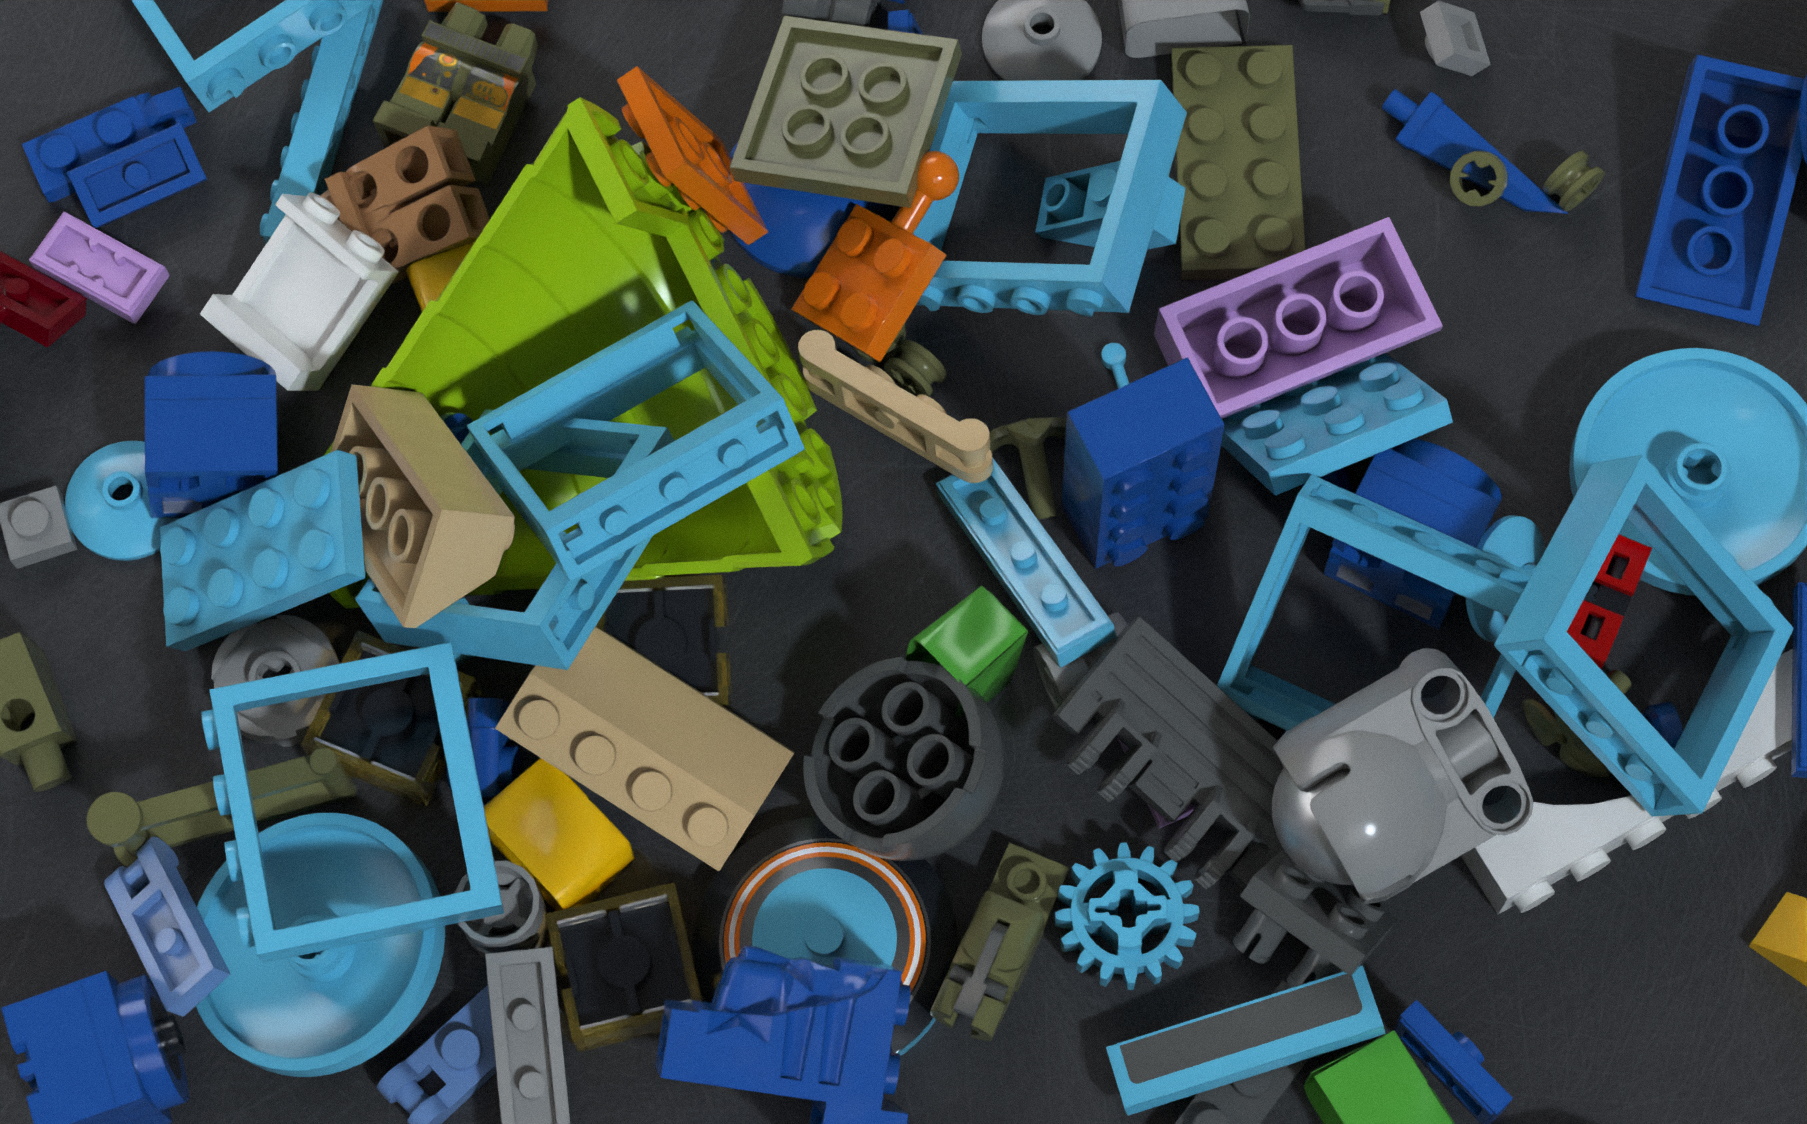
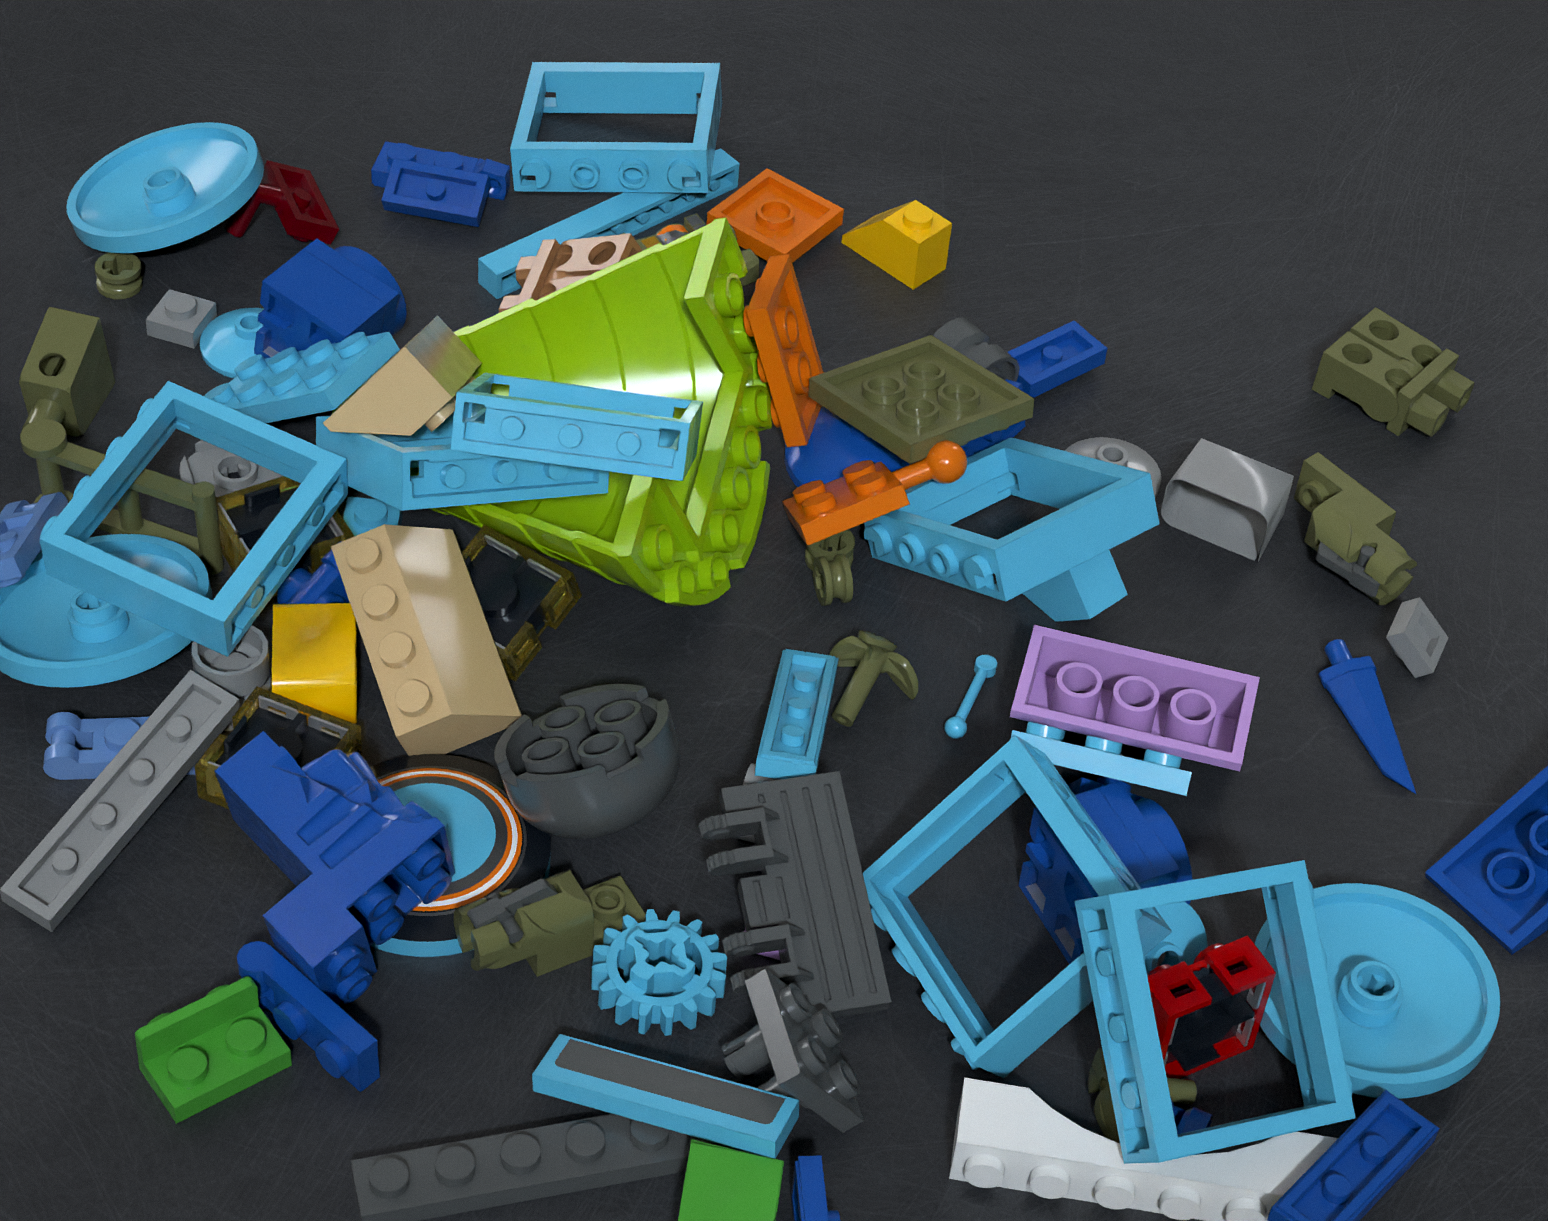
camera: 30 degrees right, 25 degrees down
(99, 267) = (364, 219): lavender plate -> none
(304, 293) = (472, 287): white panel -> none
(908, 419) = (793, 586): tan plate -> none
(970, 640) = (708, 729): bright green piece -> none
(1141, 464) = (924, 679): blue brick -> none
(1237, 159) = (1195, 600): olive plate -> none
(1395, 781) = (928, 984): light grey piece -> none
(1475, 197) = (1348, 712): olive bush -> none
(1573, 180) = (1435, 769): olive bush -> none

